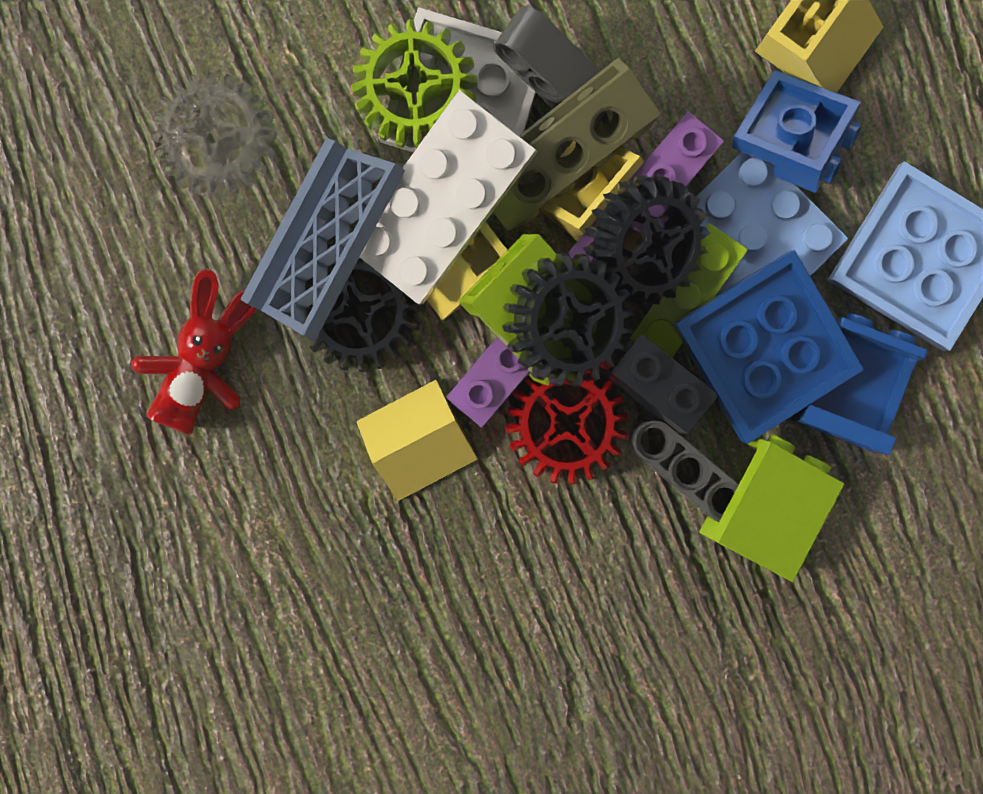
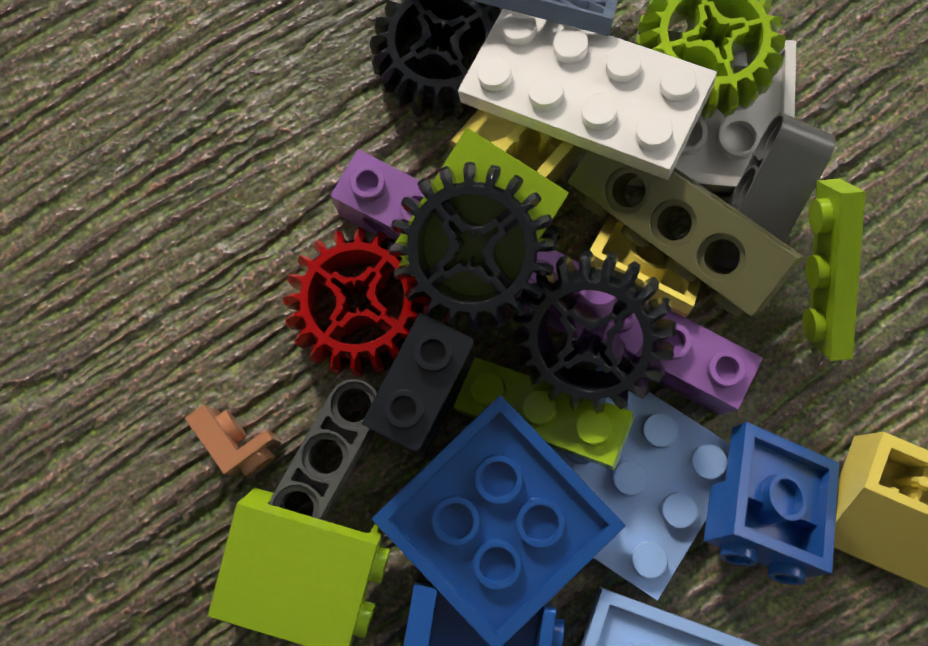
camera: 80 degrees right, 10 degrees down
(415, 440) = (303, 140): light yellow slope -> none
(628, 34) = (834, 267): none -> lime plate
(655, 551) = (222, 437): none -> nougat bracket

